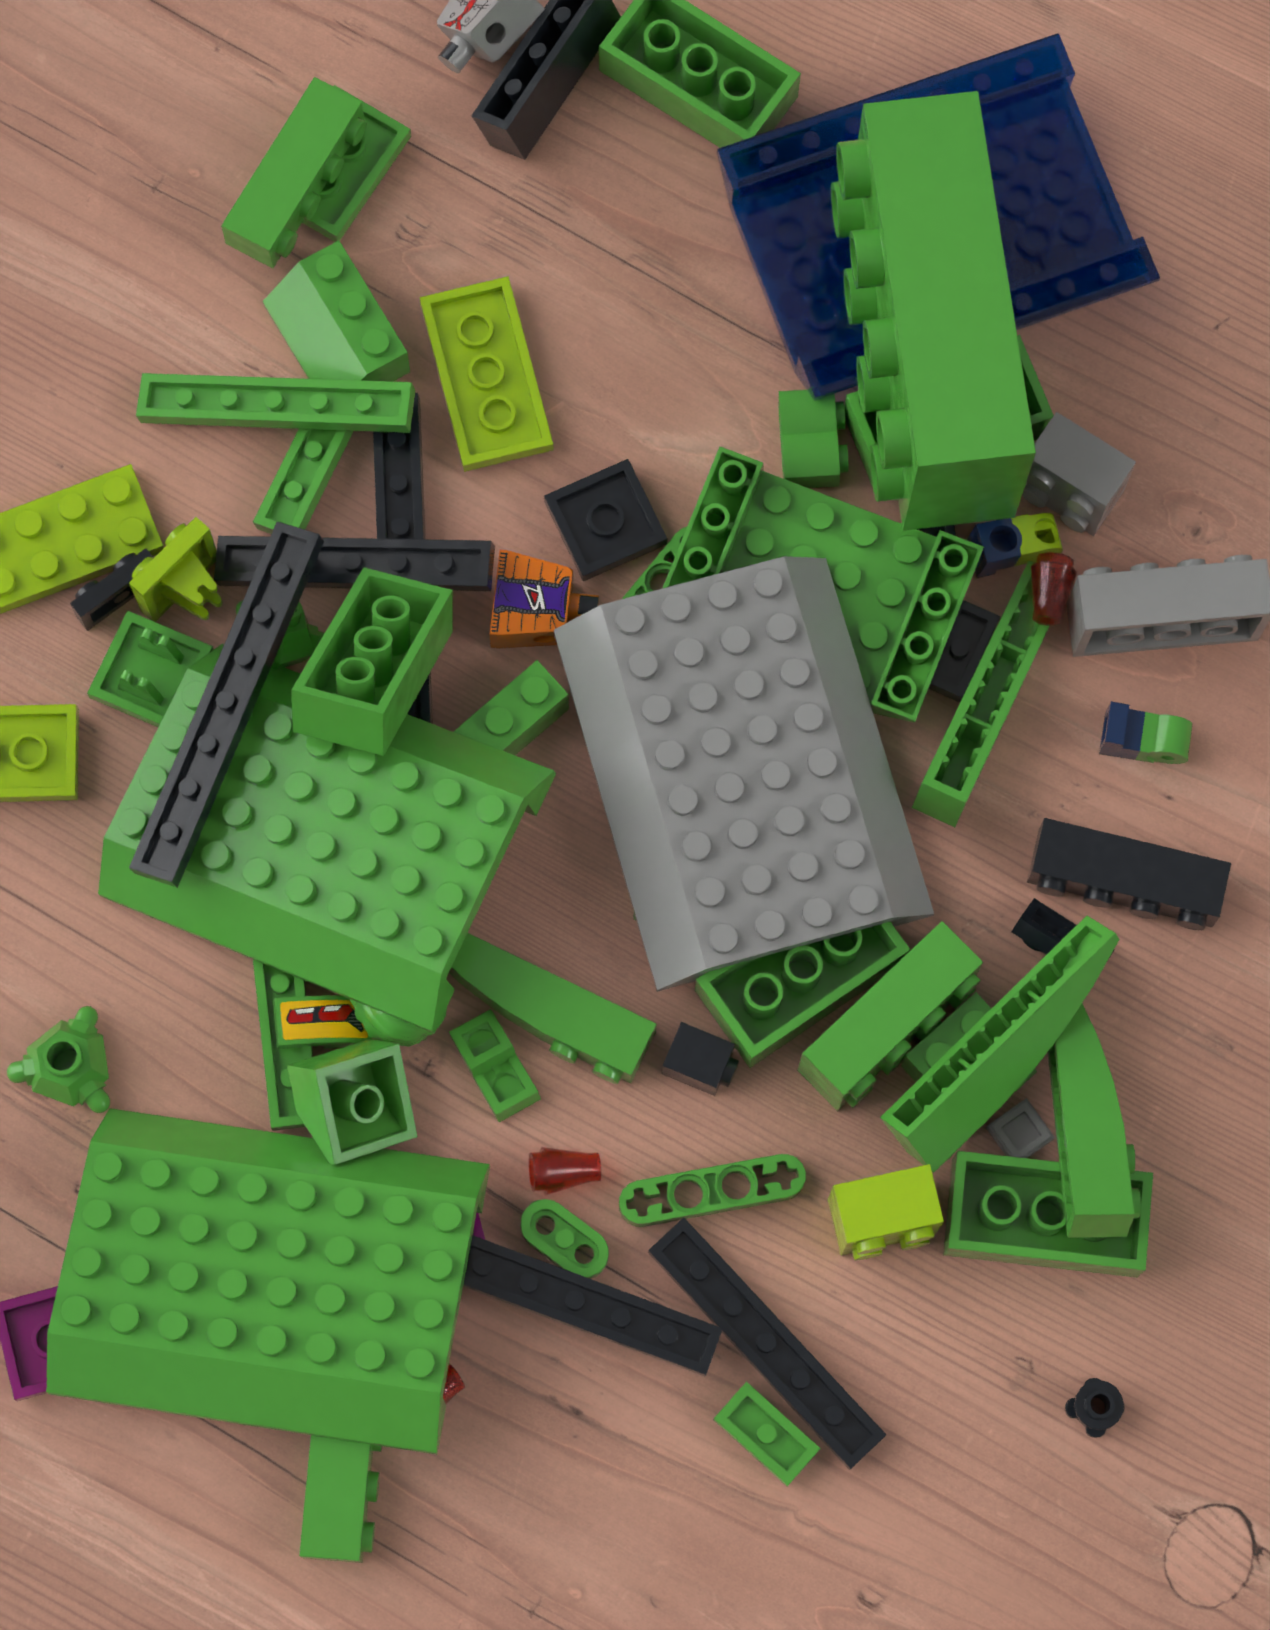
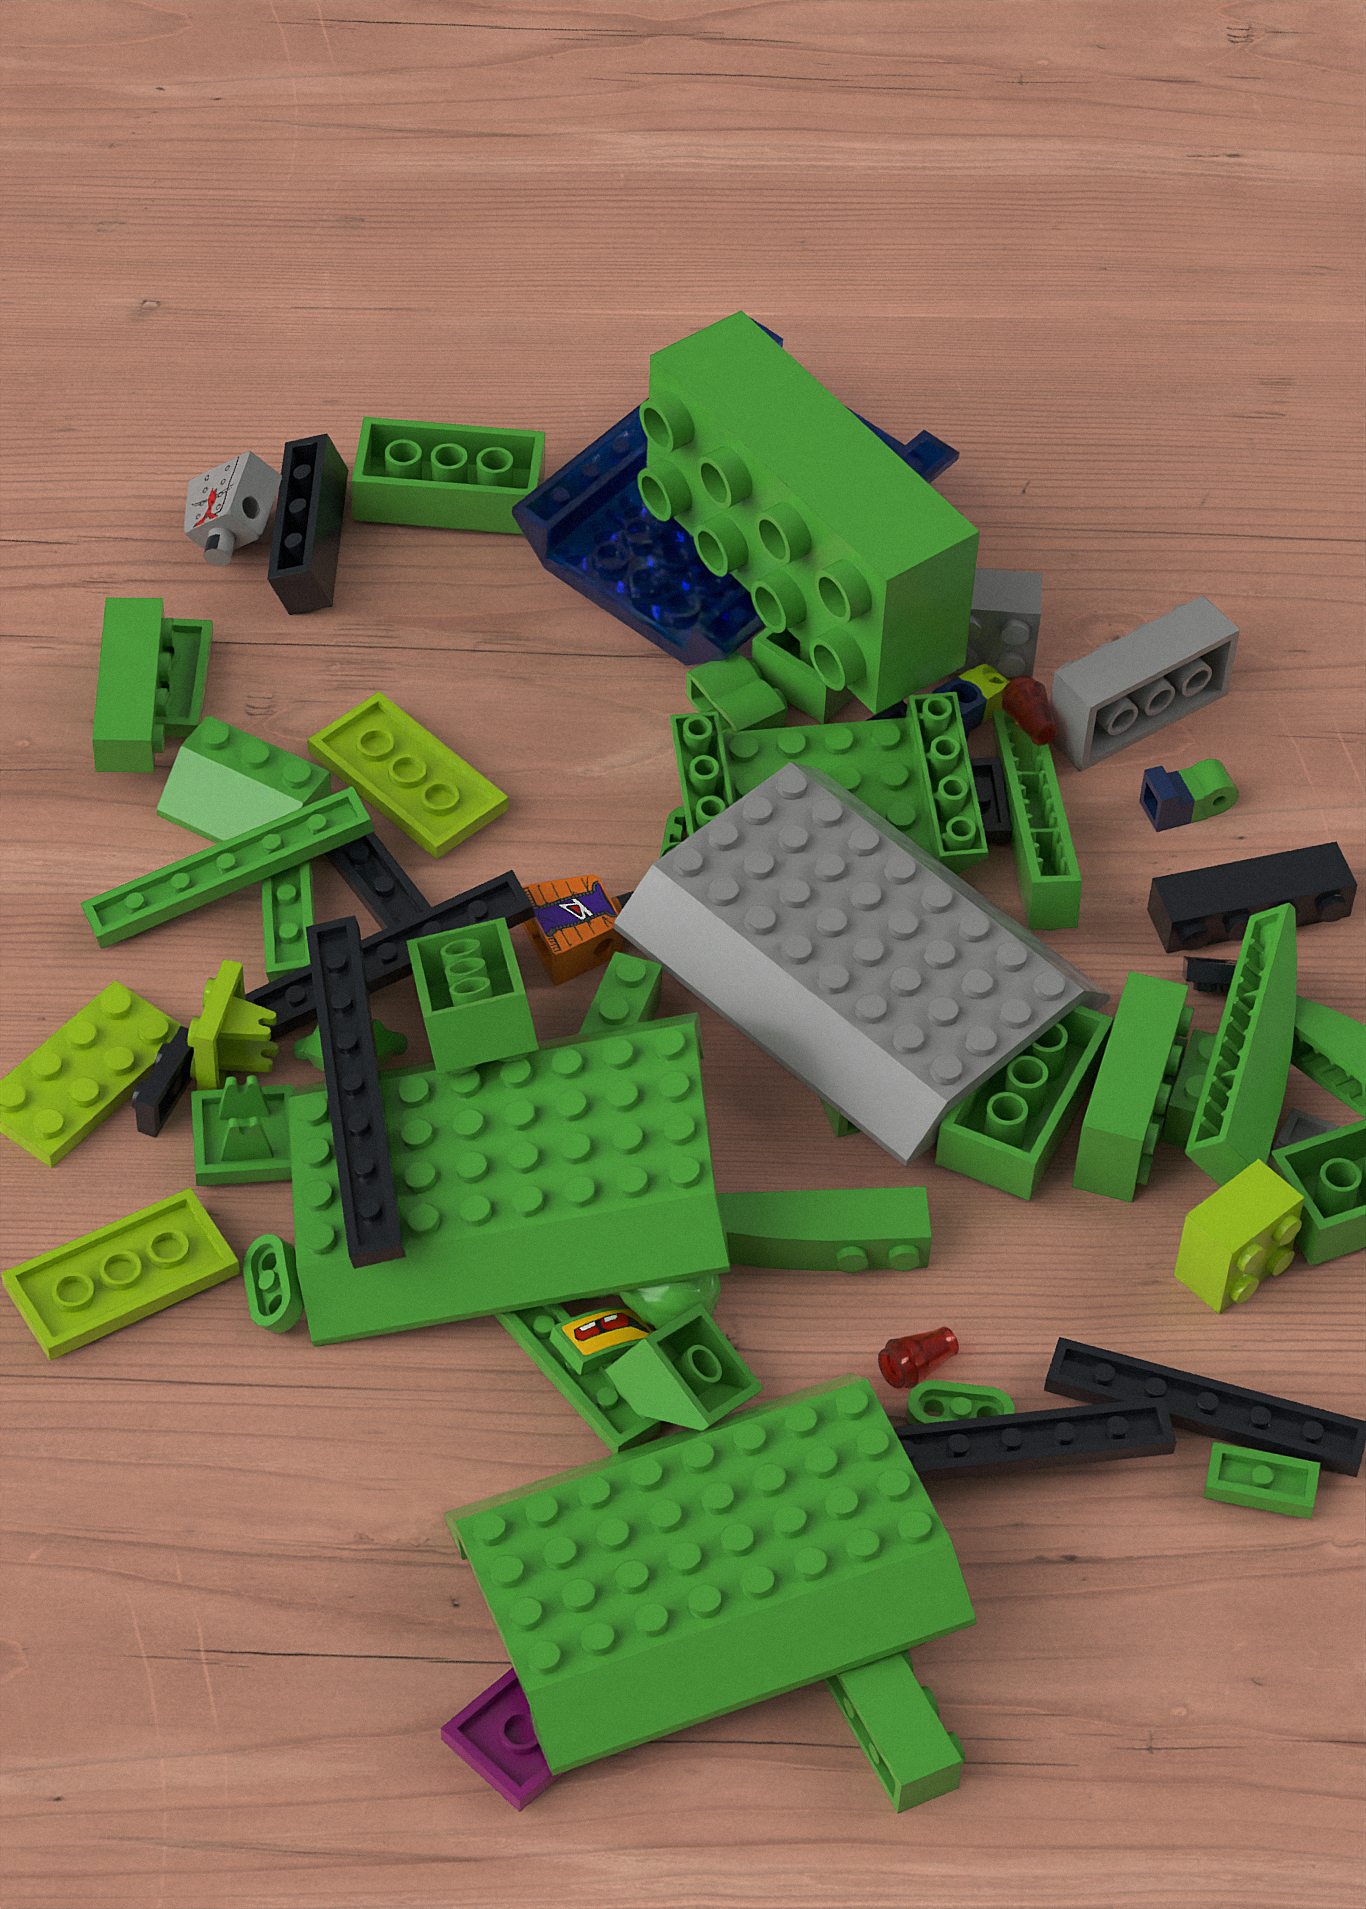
camera: 30 degrees left, 25 degrees down
(67, 1063) = (377, 1491): bright green rock -> none
(85, 836) = (272, 1283): none -> bright green plate
(494, 1065) = (786, 1304): bright green slope -> none
(605, 520) = (595, 836): black plate -> none
(700, 1059) = (981, 1208): black brick -> none
(713, 1196) = (1071, 1316): bright green beam -> none

